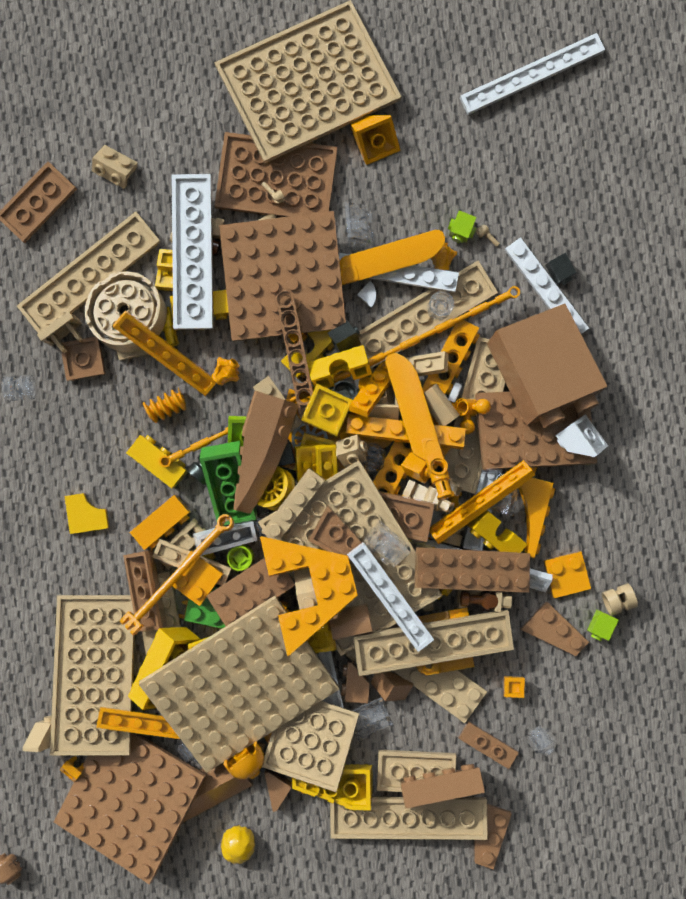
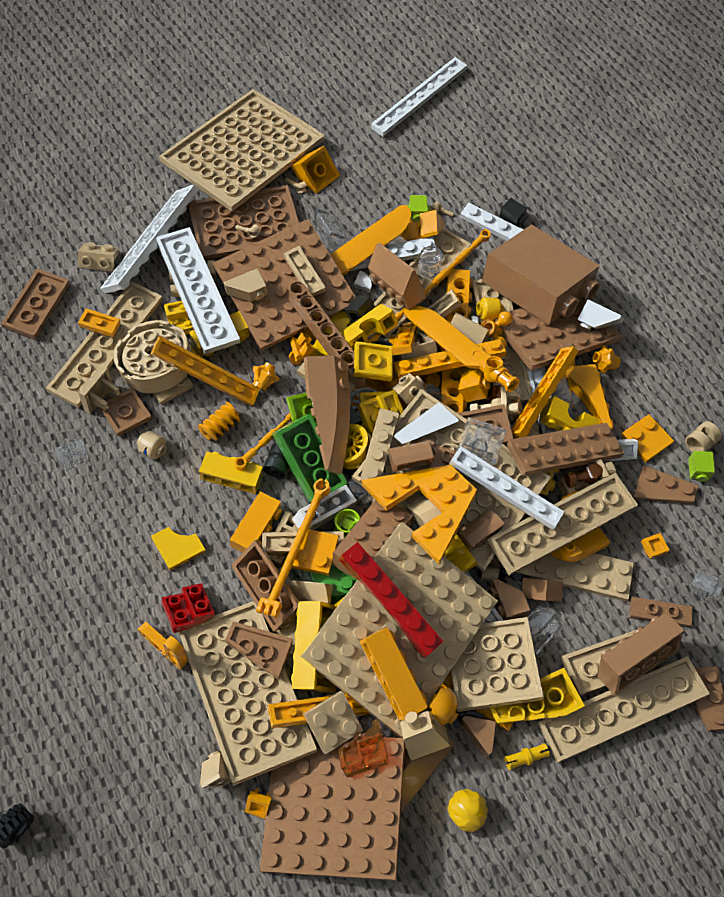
camera: 25 degrees left, 25 degrees down
(45, 619) = (170, 648): none -> light orange beam
(72, 579) = (187, 608): none -> red slope
(86, 253) = (99, 322): none -> light orange plate
(94, 405) = (151, 445): none -> tan head
(119, 647) = (260, 647): none -> medium nougat wing
(149, 741) = (333, 722): none -> tan plate
(166, 775) = (364, 751): none -> clear orange slope
(173, 163) = (147, 242): none -> white plate
(180, 613) = (311, 591): none -> tan slope
(212, 727) = (393, 673): none -> light orange brick
(216, 781) = (423, 734): none -> tan torso
(223, 642) = (410, 621): none -> red arch
(242, 273) = (247, 286): none -> tan slope
(271, 358) = (301, 348): none -> light orange hips
(302, 277) = (304, 271): none -> tan plate
(307, 821) = (526, 756): none -> yellow pin
(314, 531) = (410, 456): none -> medium nougat brick
(351, 152) = (299, 187): none -> tan hand
(351, 500) = (428, 422): none -> white sticker
(393, 316) = (395, 277): none -> medium nougat slope
(463, 259) = (431, 223): none -> light orange slope
(476, 382) = (489, 308): none -> yellow head
(568, 479) = (606, 359): none -> light orange rock

